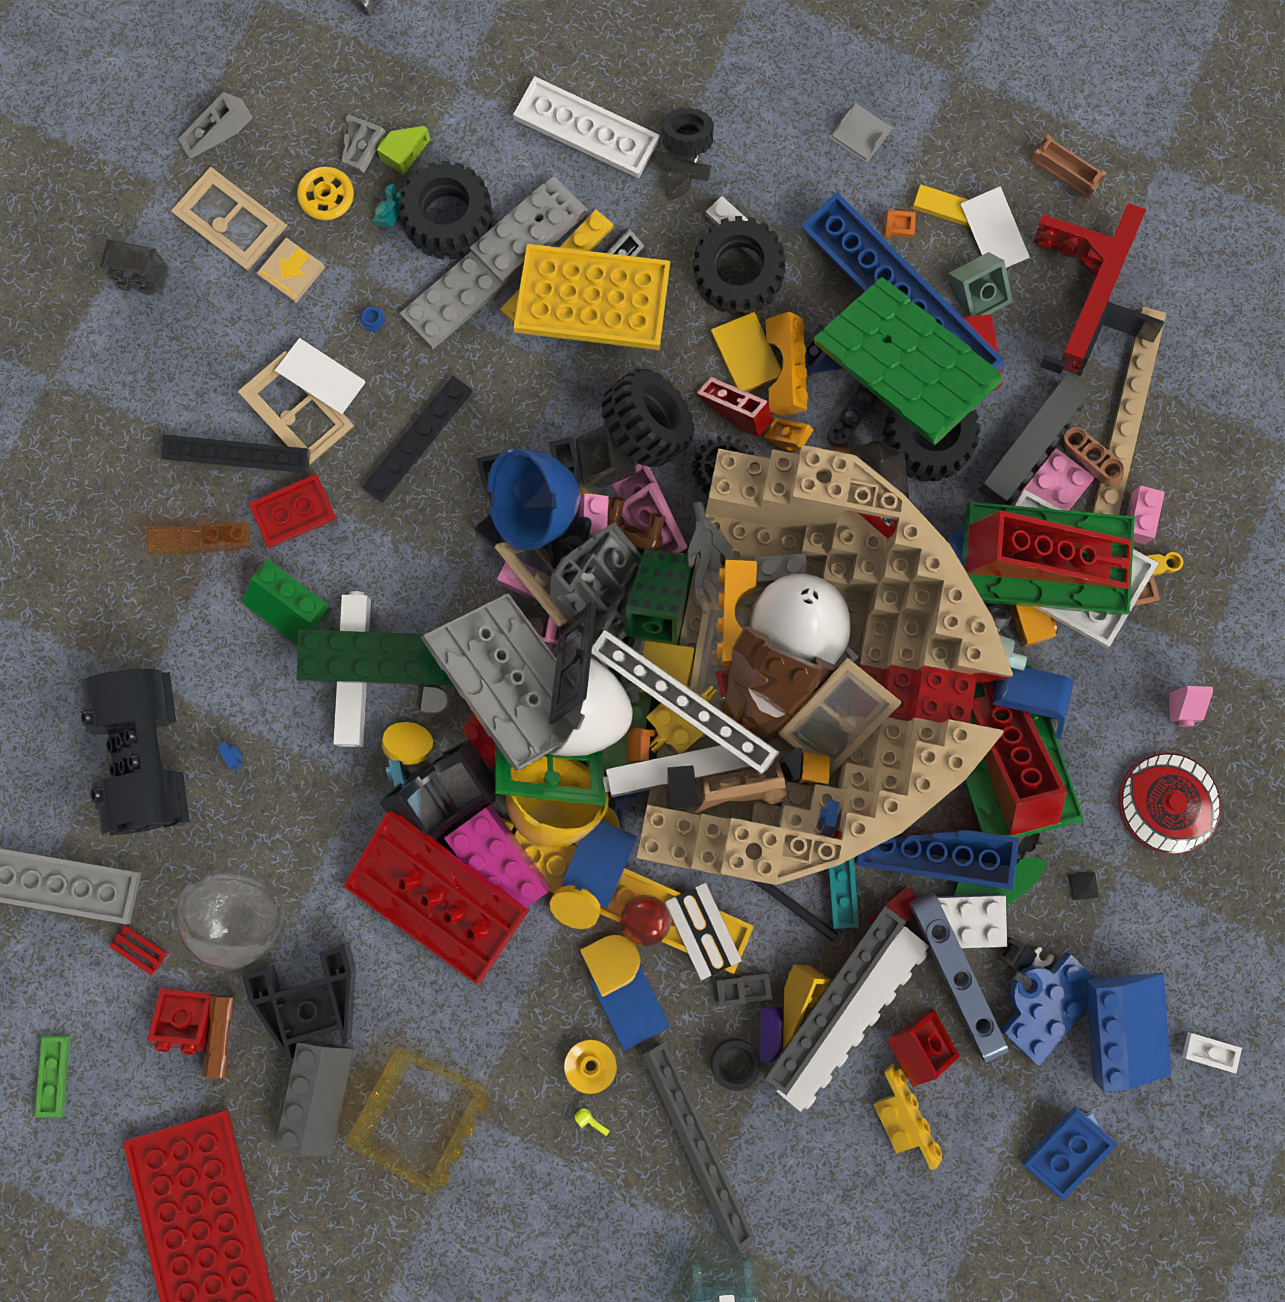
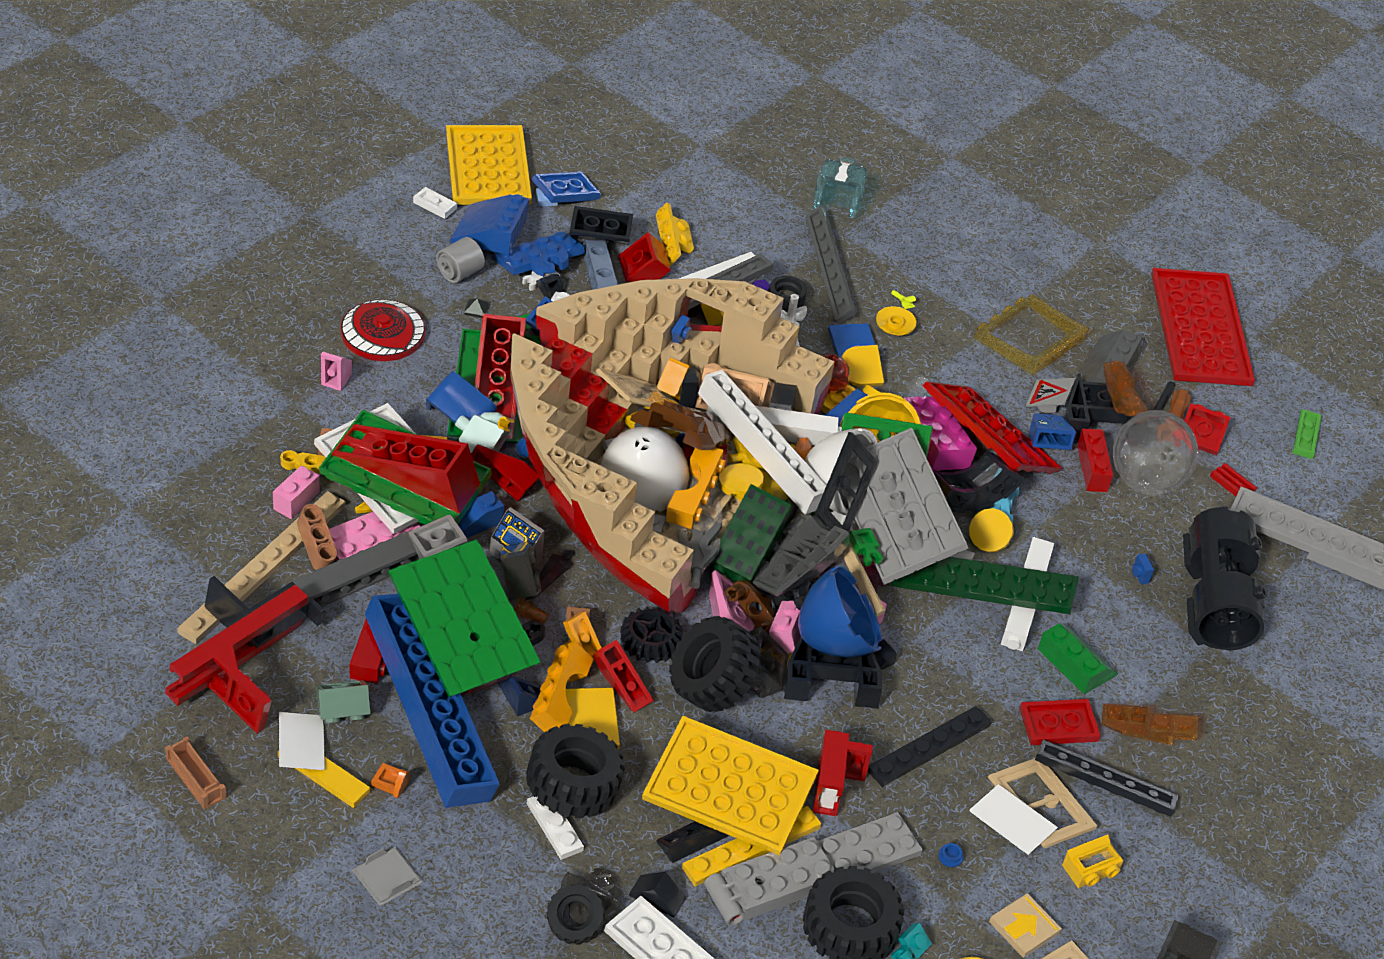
camera: 165 degrees left, 35 degrees down
(235, 350) = (1092, 862): none -> yellow window
(239, 1060) = (1164, 396): none -> black bar
(284, 1016) = (1121, 389): none -> clear orange slope
(306, 909) = (1094, 460): none -> red brick
(366, 933) = (1051, 432): none -> blue torso
(376, 1009) = (1050, 393): none -> light grey piece
(503, 367) = (838, 761): none -> red brick
(535, 964) = (915, 386): none -> clear plate
(536, 619) = (866, 543): none -> green plate
(626, 187) = (659, 892): none -> black slope
(693, 658) = (738, 477): none -> yellow tile
(730, 1026) = (794, 314): none -> white plant
(974, 478) = (437, 536): none -> light grey slope
(996, 1077) = (601, 225): none -> black slope
(1137, 943) = (460, 260): none -> light grey piece
(1182, 1161) = (487, 162): none -> yellow plate

